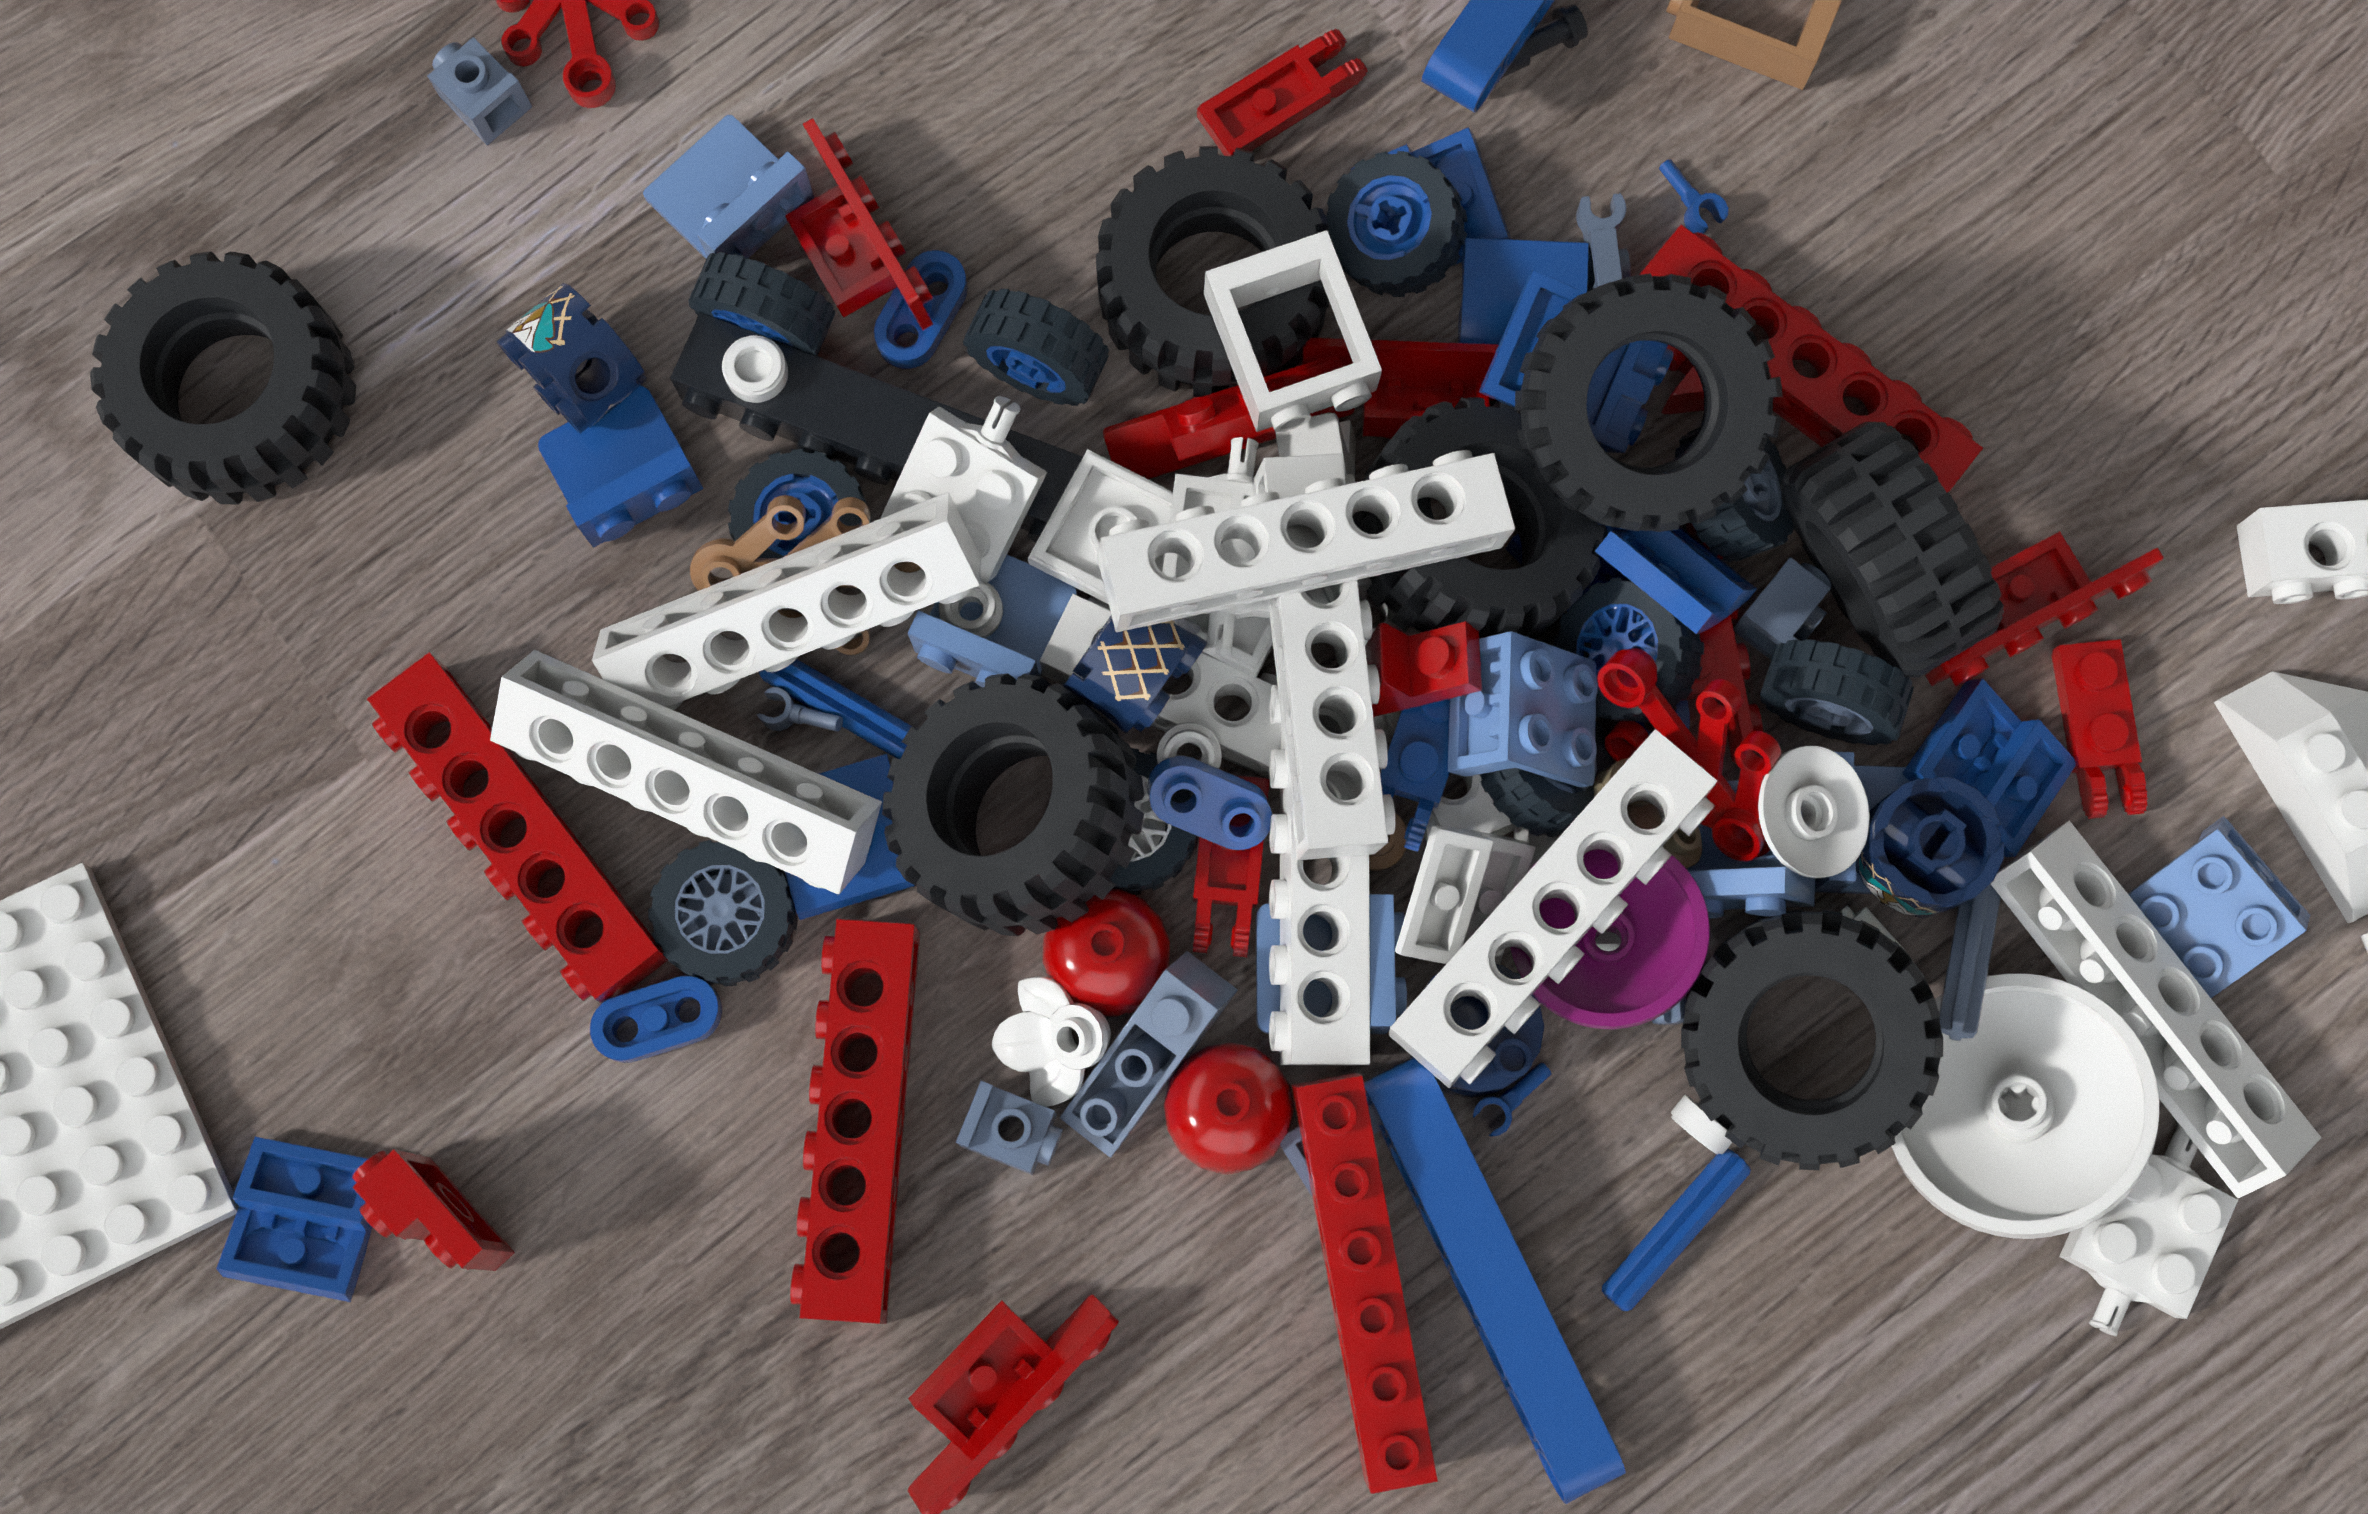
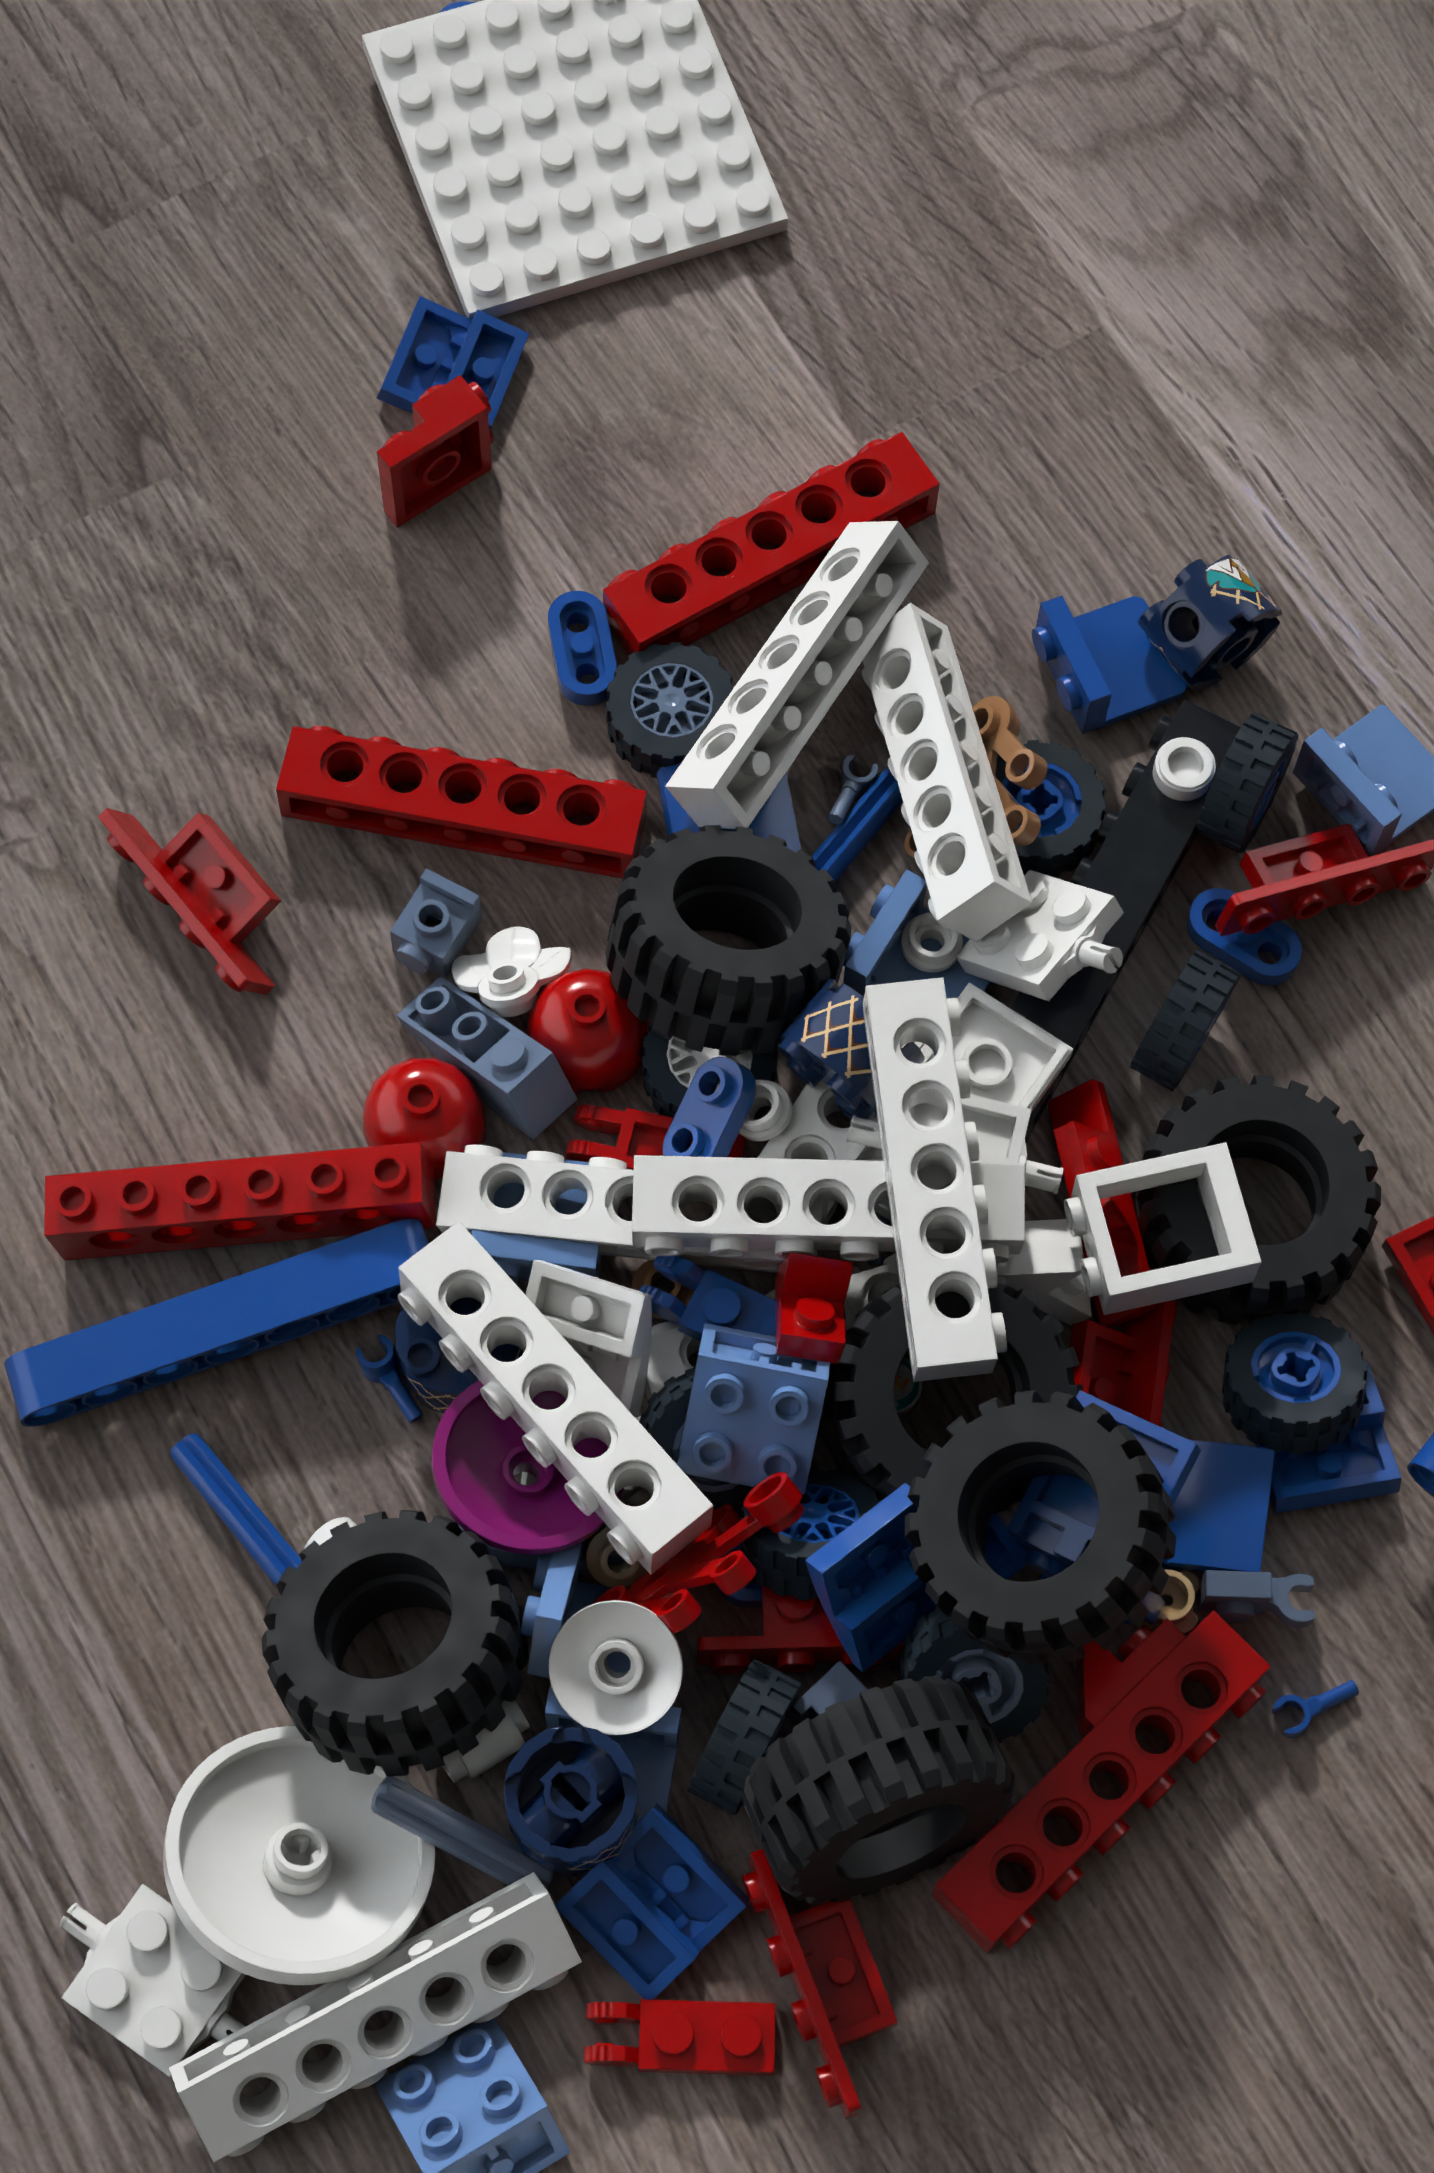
camera: 95 degrees right, 10 degrees down
(180, 317) = (1227, 281): black tyre -> none

